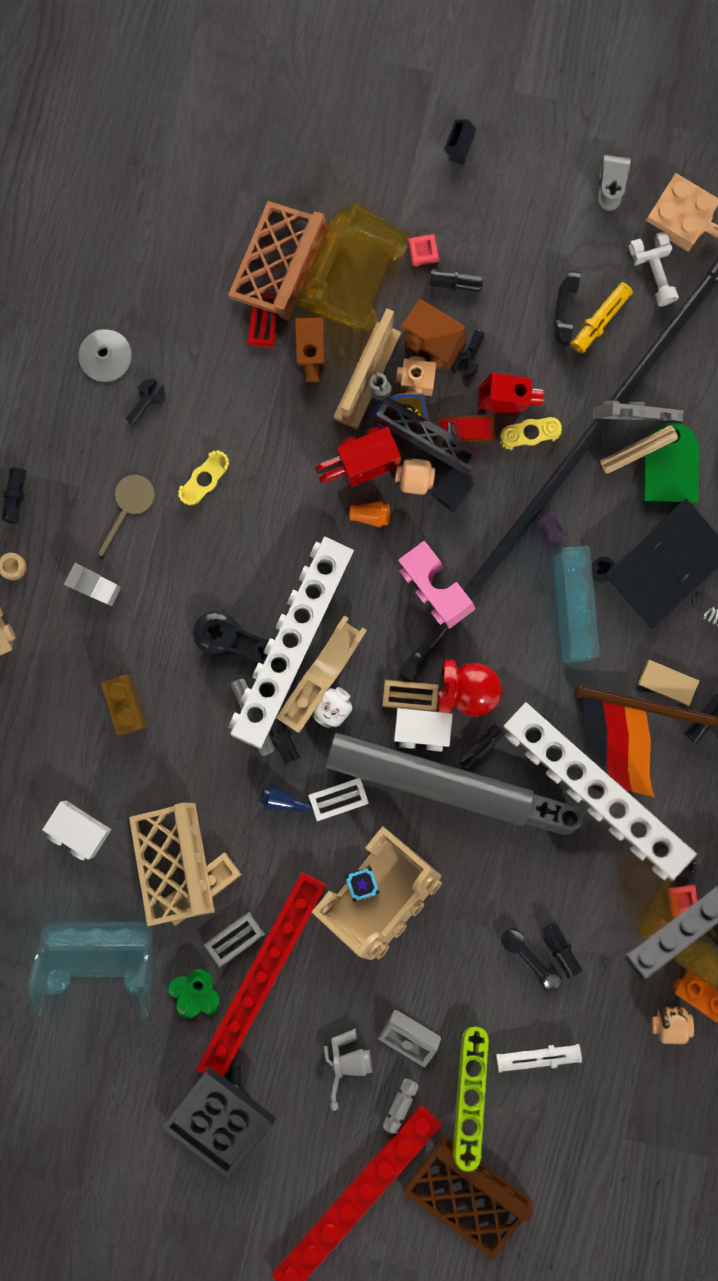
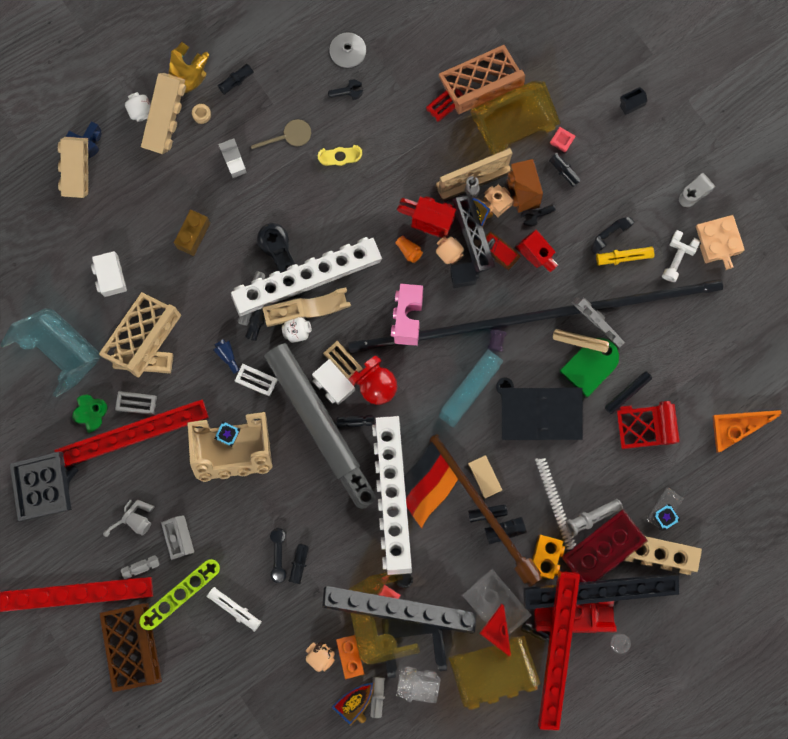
camera: 40 degrees right, 5 degrees down
(310, 336) = (459, 129): dark orange torso -> none
(514, 435) = (543, 287): light yellow piece -> none

